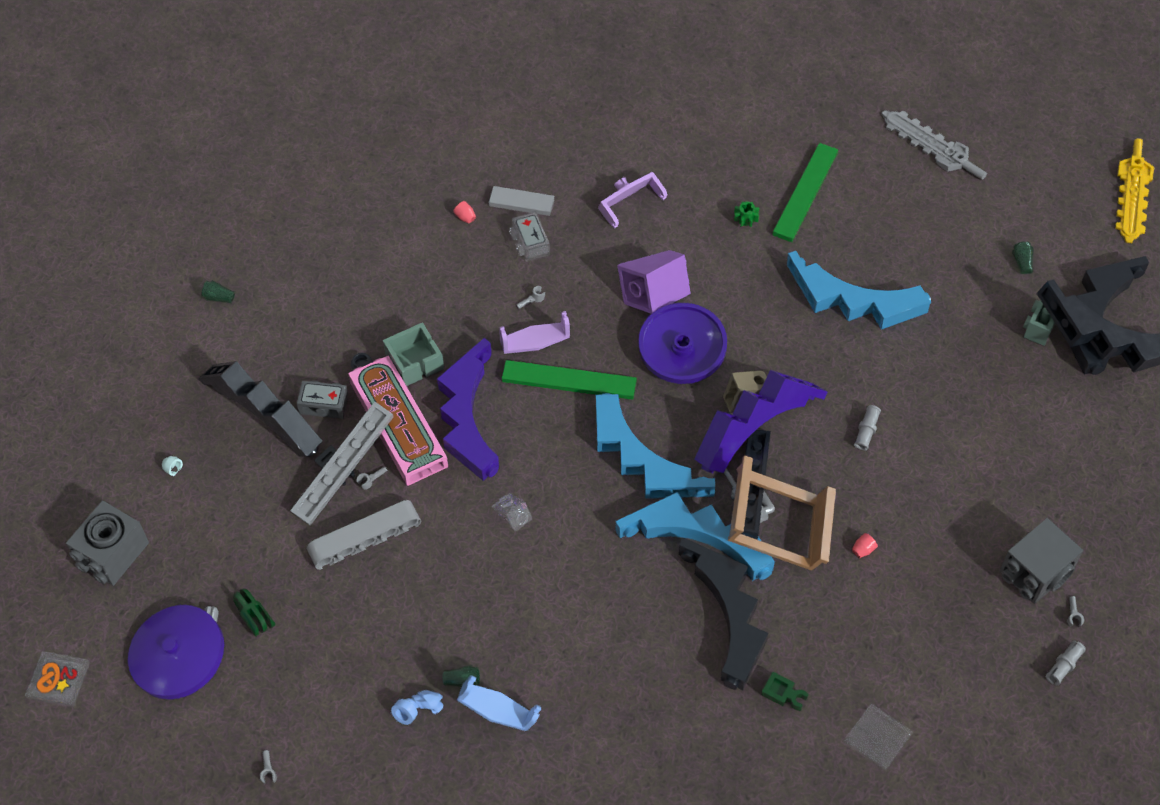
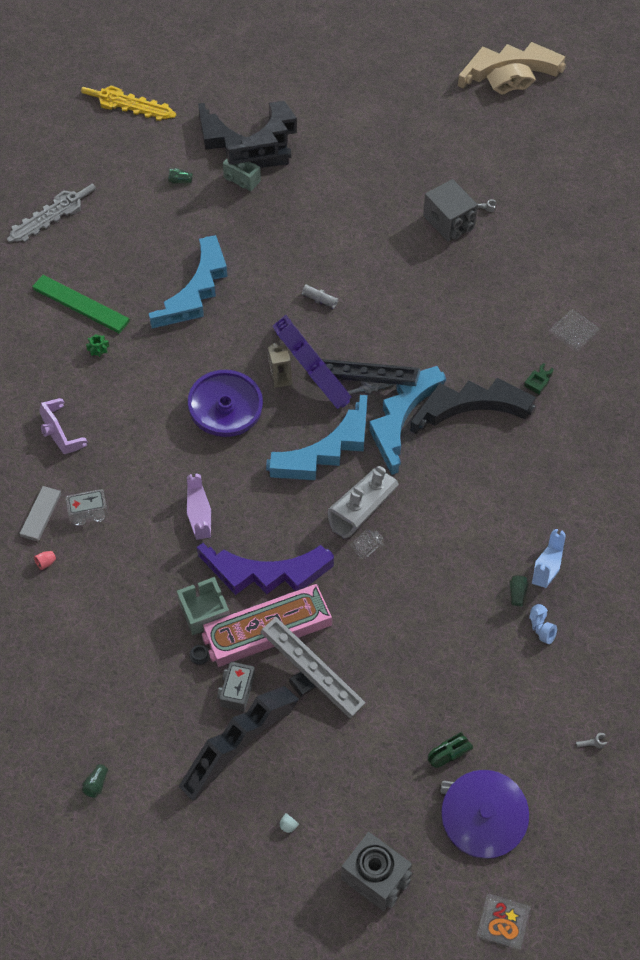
camera: 85 degrees left, 0 degrees up
(363, 533) = (381, 657): light grey beam -> none
(370, 478) = (321, 652): light grey hand -> none
(534, 297) = (151, 512): light grey hand -> none
(565, 495) = (361, 502): none -> light grey piece
(568, 379) = (242, 494): green tile -> none
(654, 280) = (162, 414): medium lavender slope -> none
(821, 517) = (403, 335): medium nougat piece -> none
(864, 545) = (421, 314): coral hose -> none
(1065, 663) = (523, 216): light grey pin -> none

